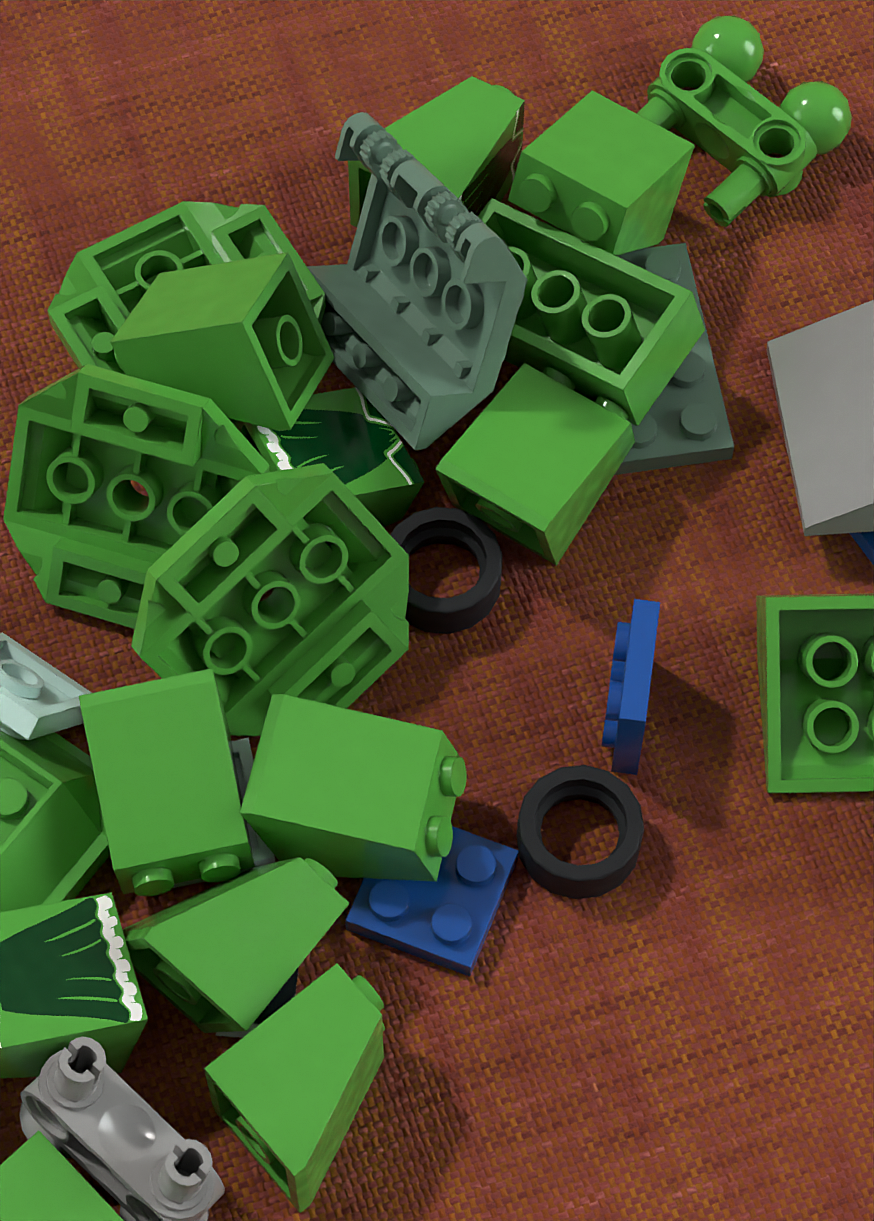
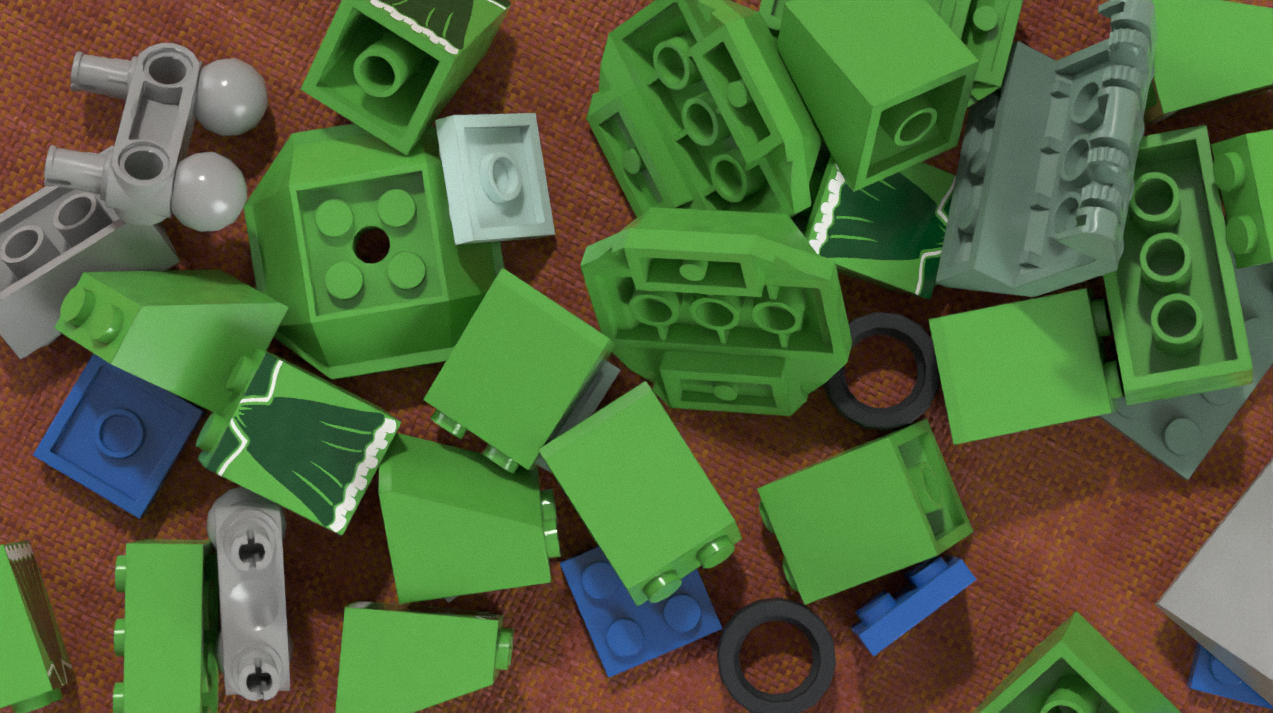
camera: 45 degrees right, 25 degrees up
(529, 671) = (864, 512): none -> bright green slope

